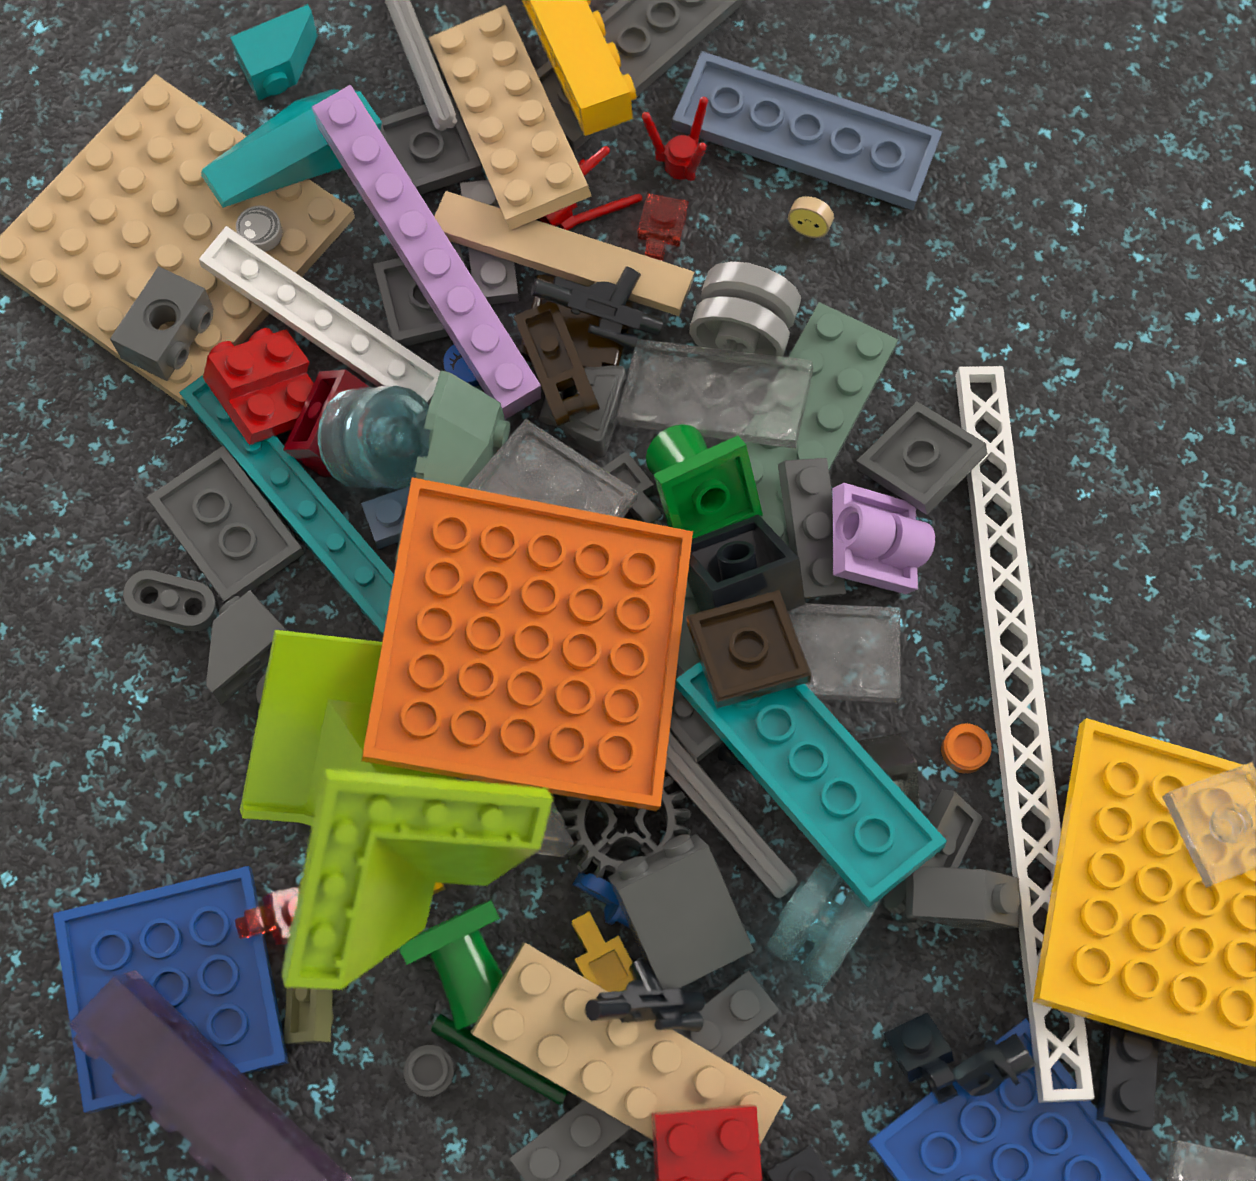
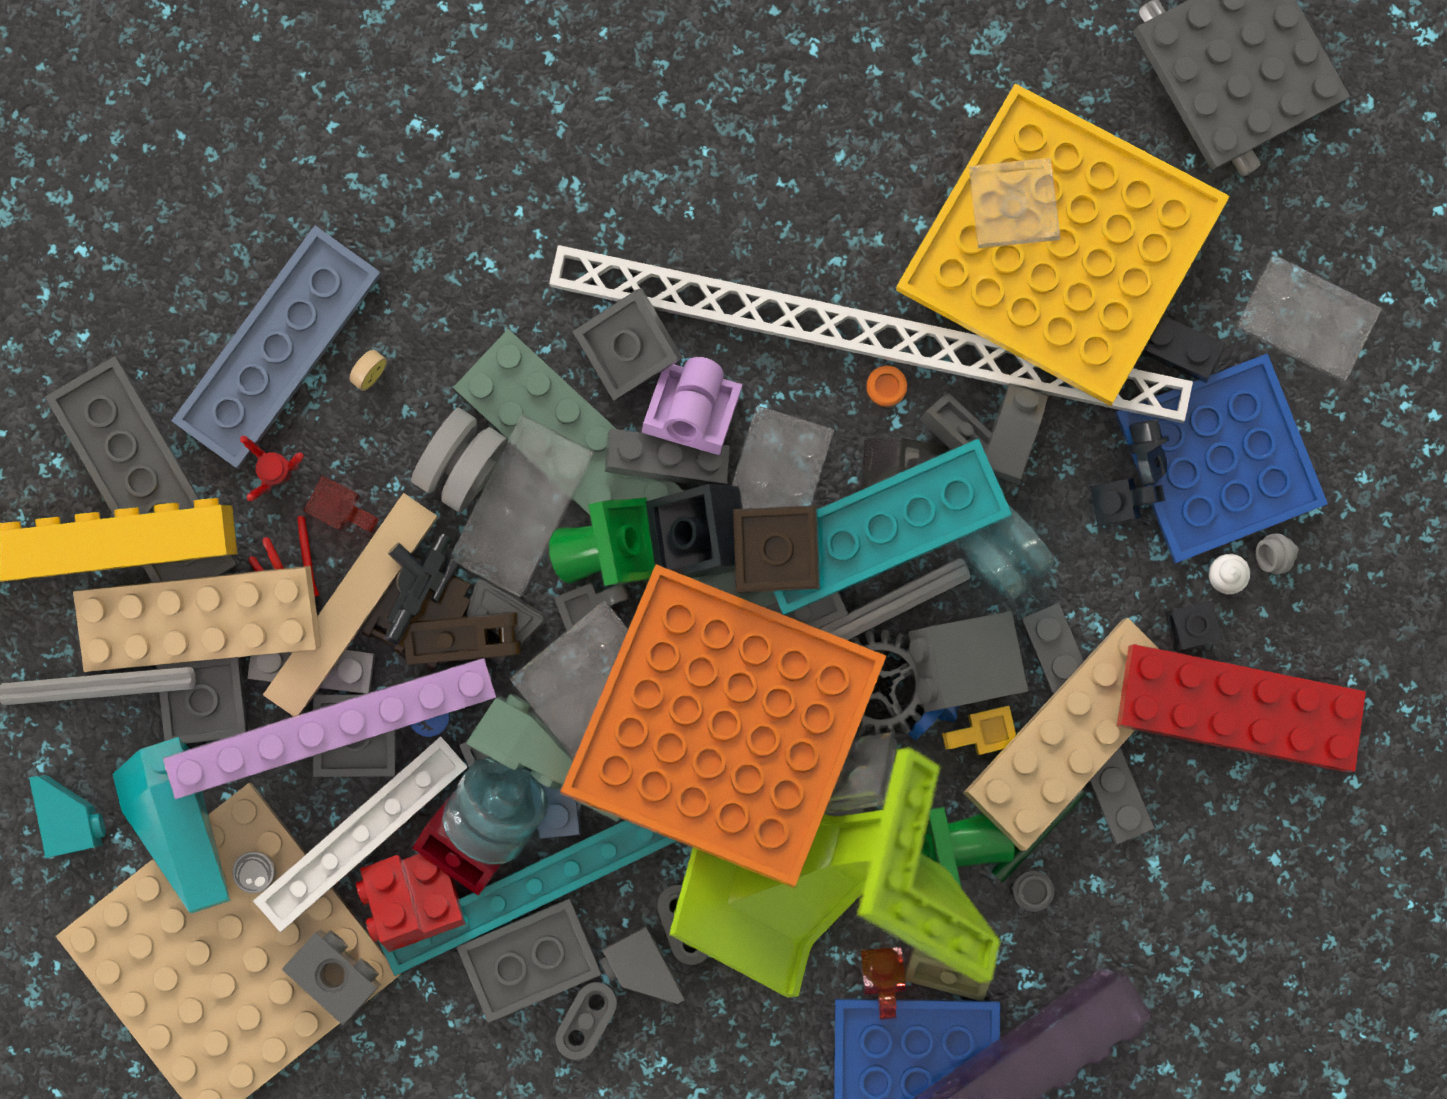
camera: 70 degrees left, 15 degrees up
(647, 1001) = (1032, 707): black piece -> none

